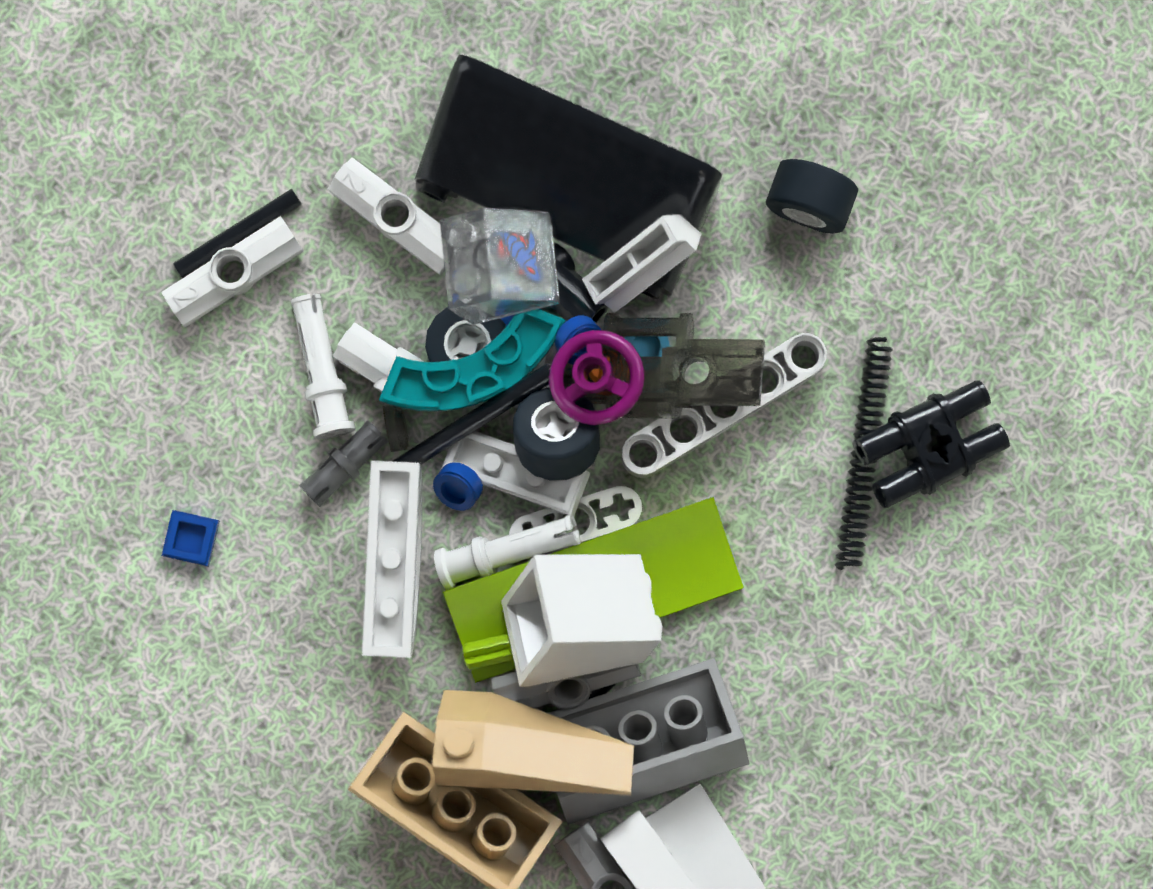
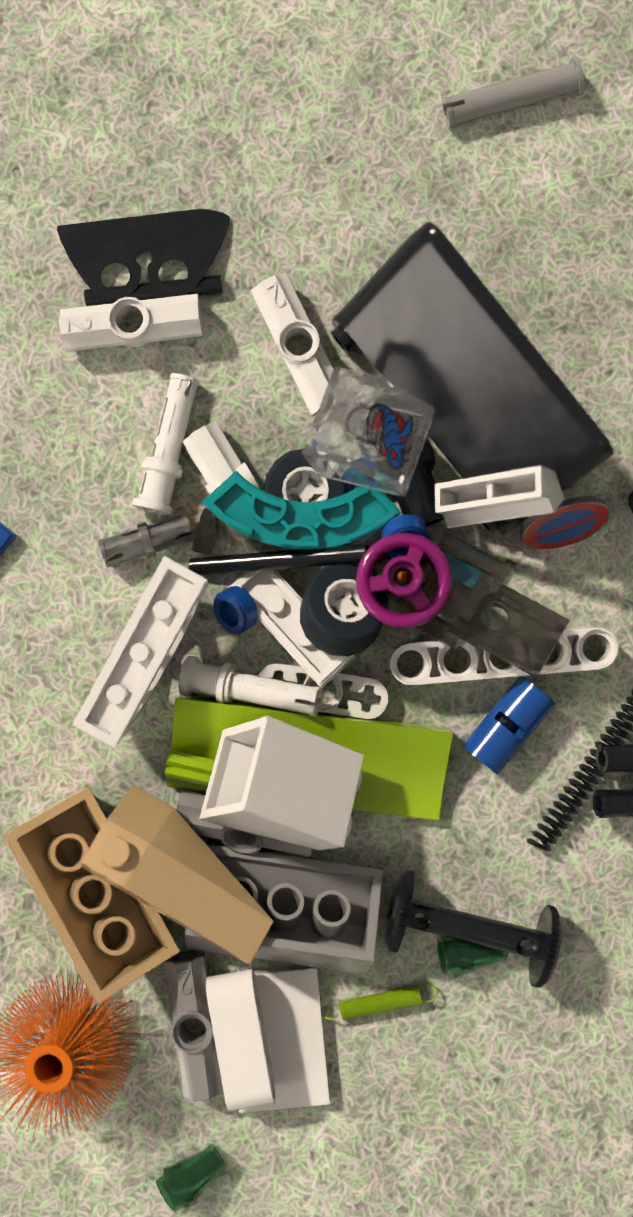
camera: 25 degrees right, 5 degrees up
(238, 170) = (179, 235): none -> black piece
(719, 256) = (569, 524): none -> piece
(763, 465) = (509, 724): none -> blue pin
(777, 787) = (381, 1002): none -> lime piece
(824, 668) = (476, 929): none -> black hose
(833, 696) = (463, 957): none -> clear green cone

